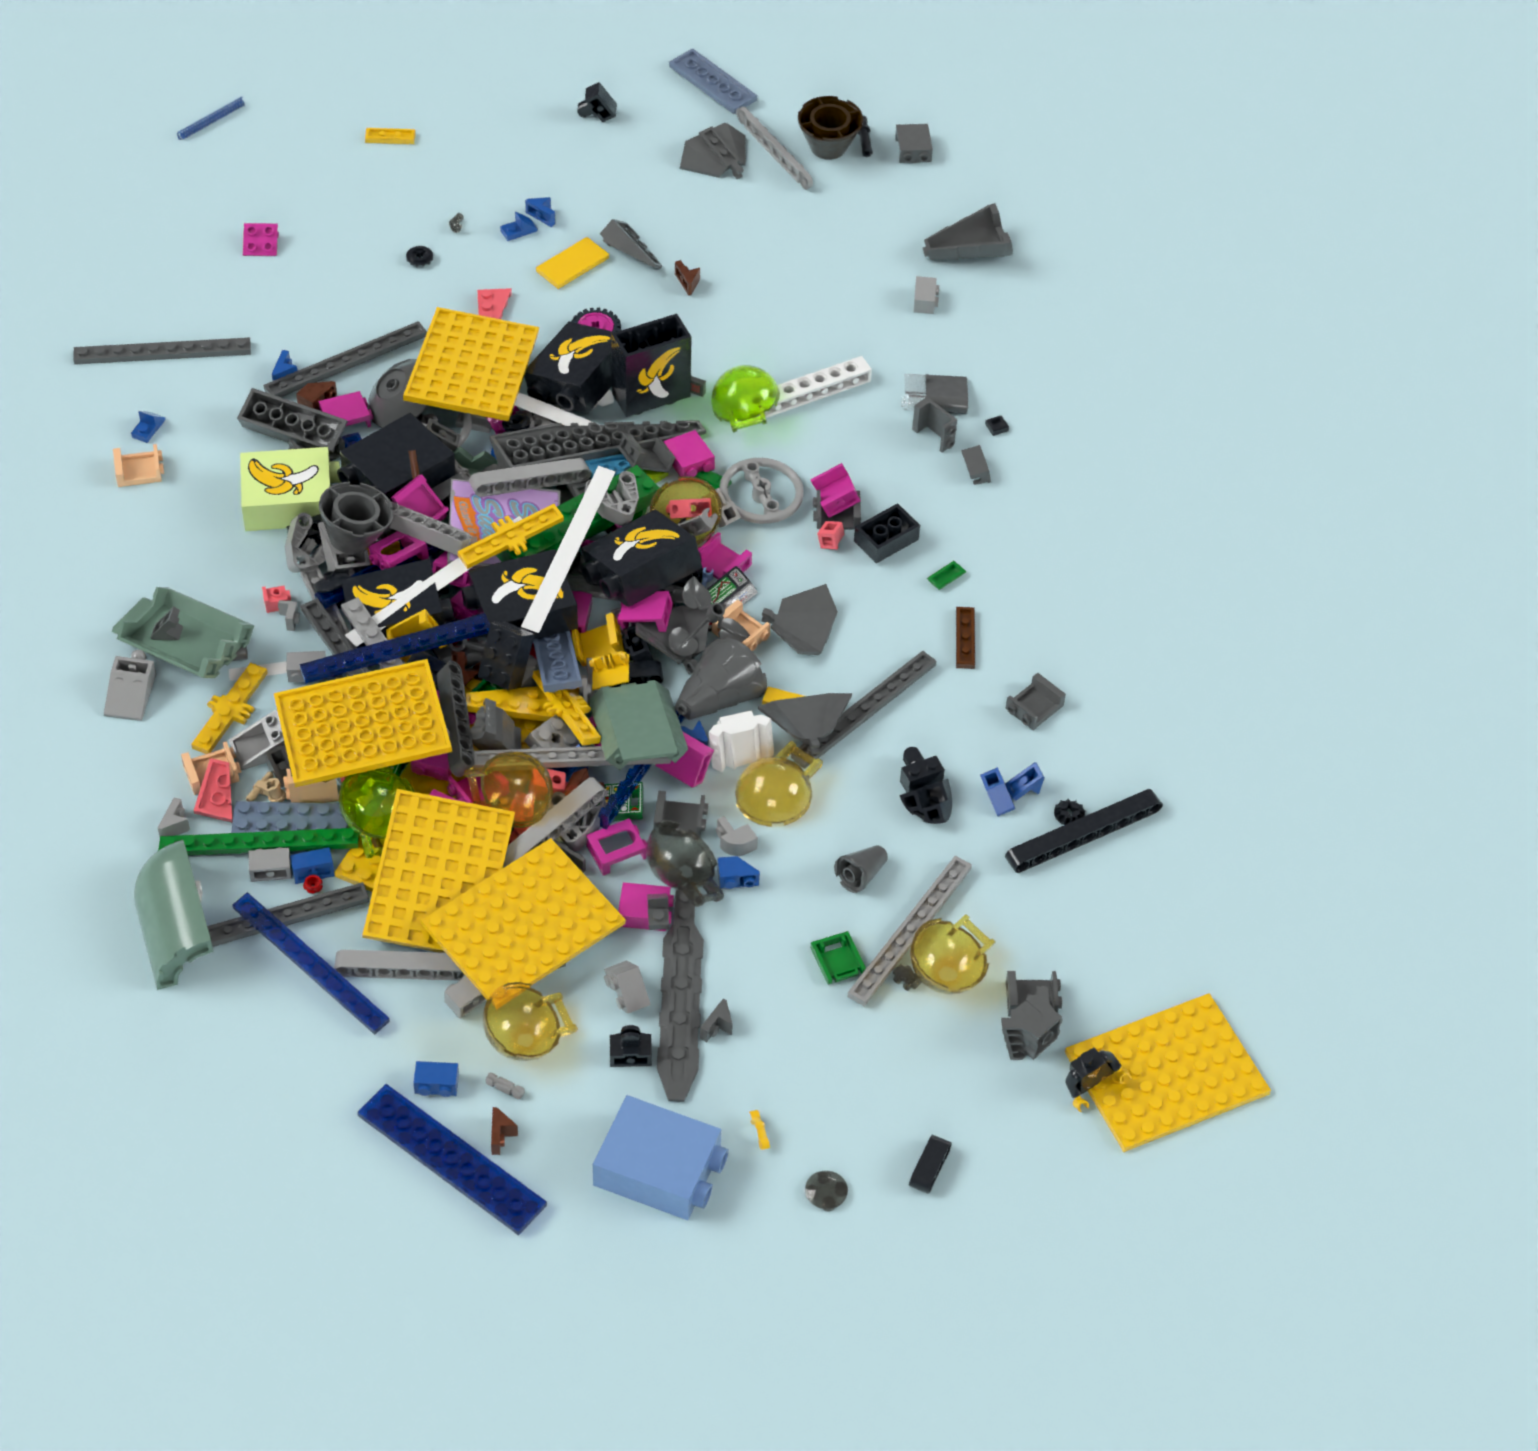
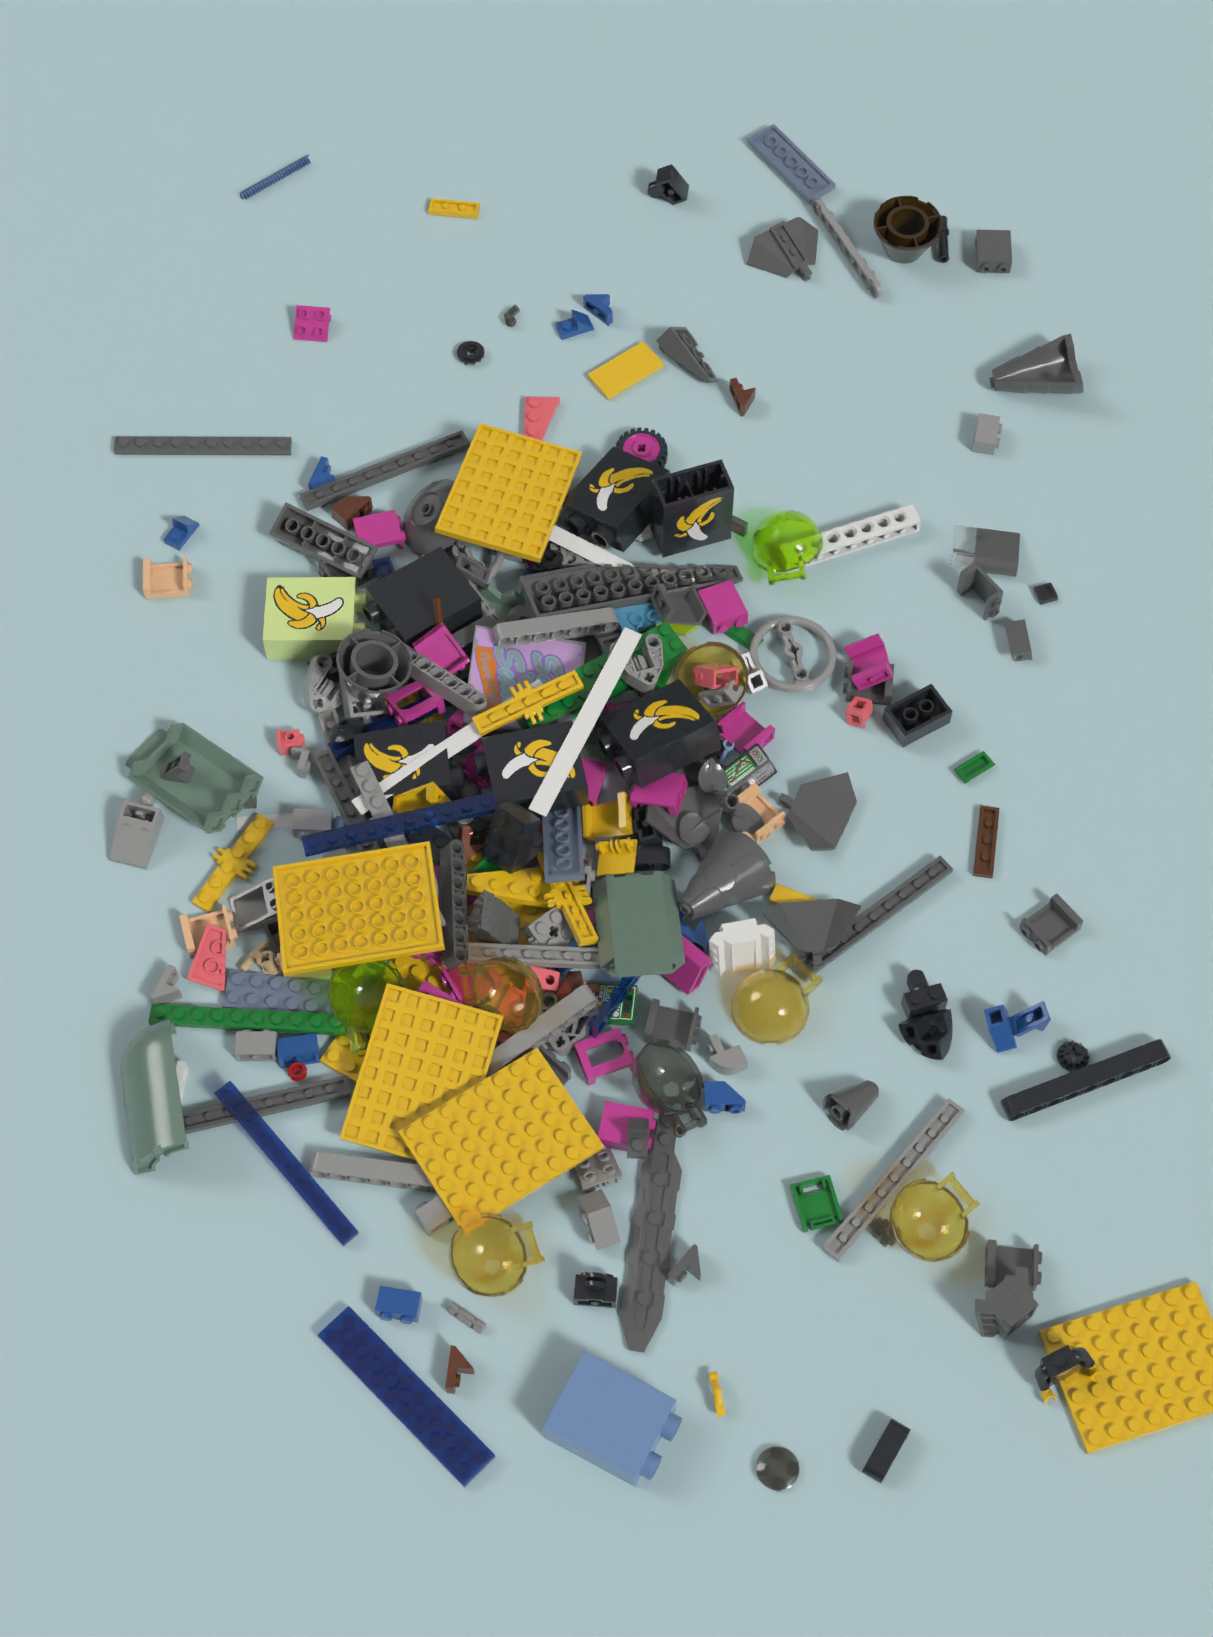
camera: 10 degrees right, 10 degrees up
(620, 944) = (597, 1170): none -> light grey hinge

